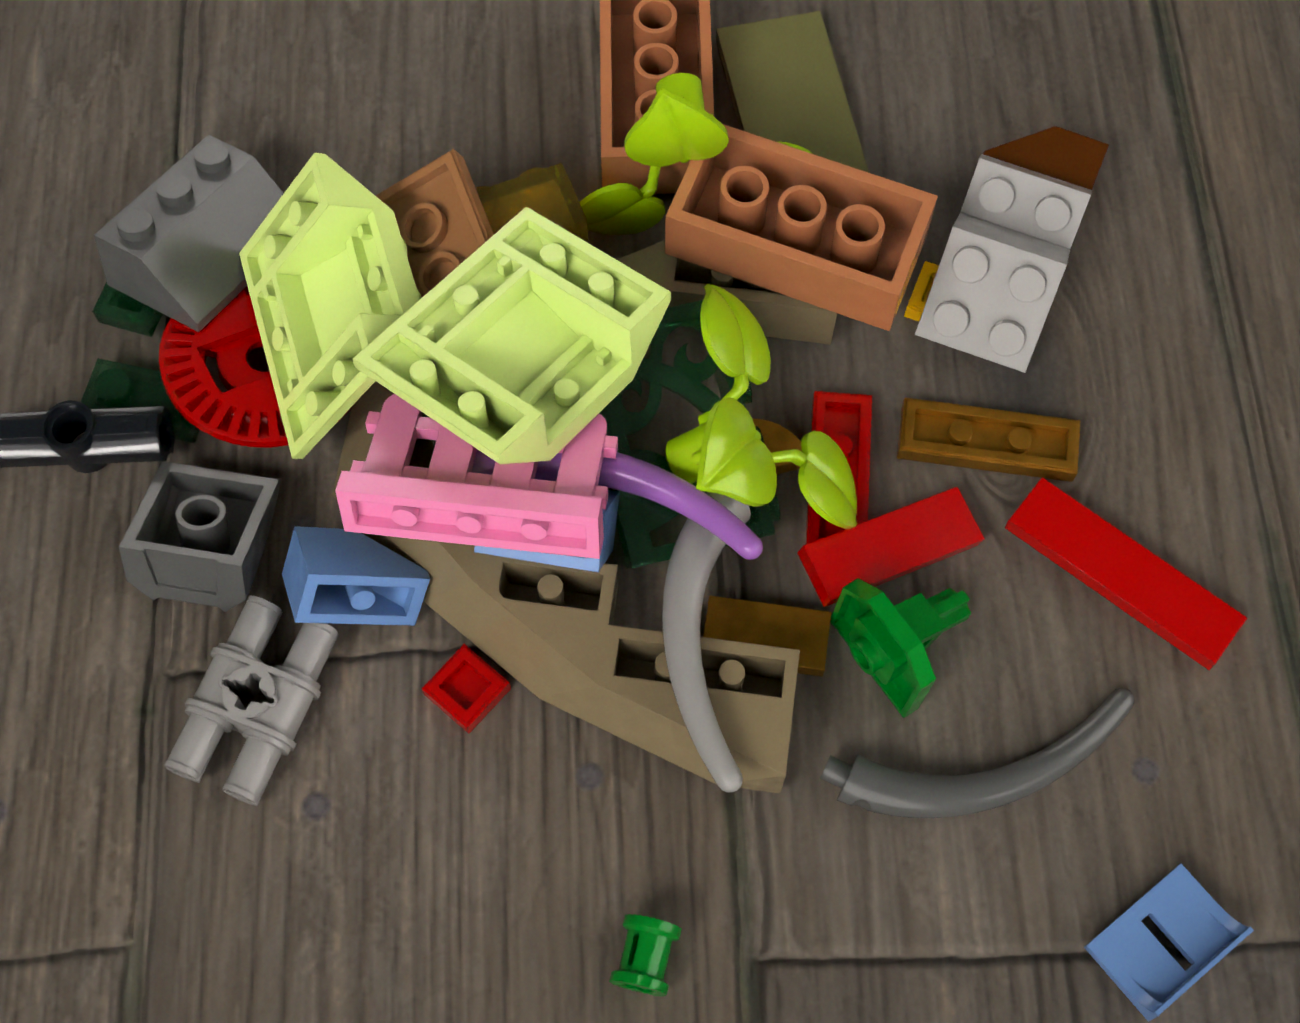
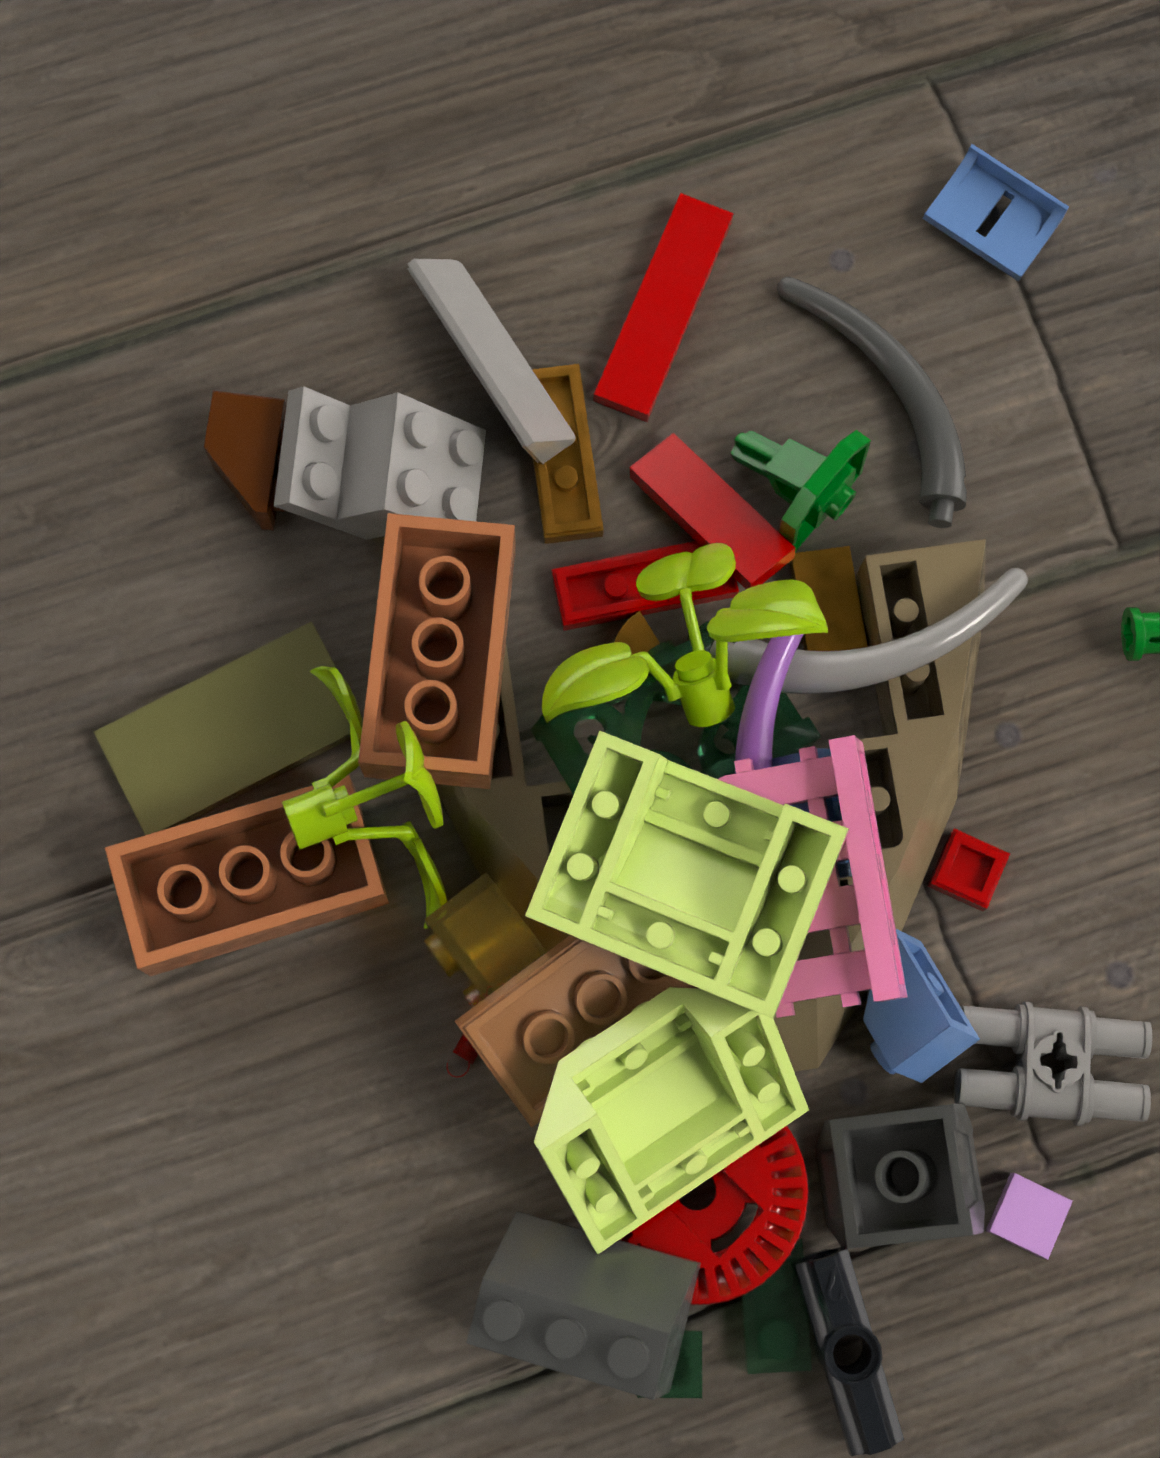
camera: 110 degrees left, 10 degrees up
(127, 637) = (1029, 1216): none -> lavender tile
(1097, 387) = (493, 357): none -> light grey slope

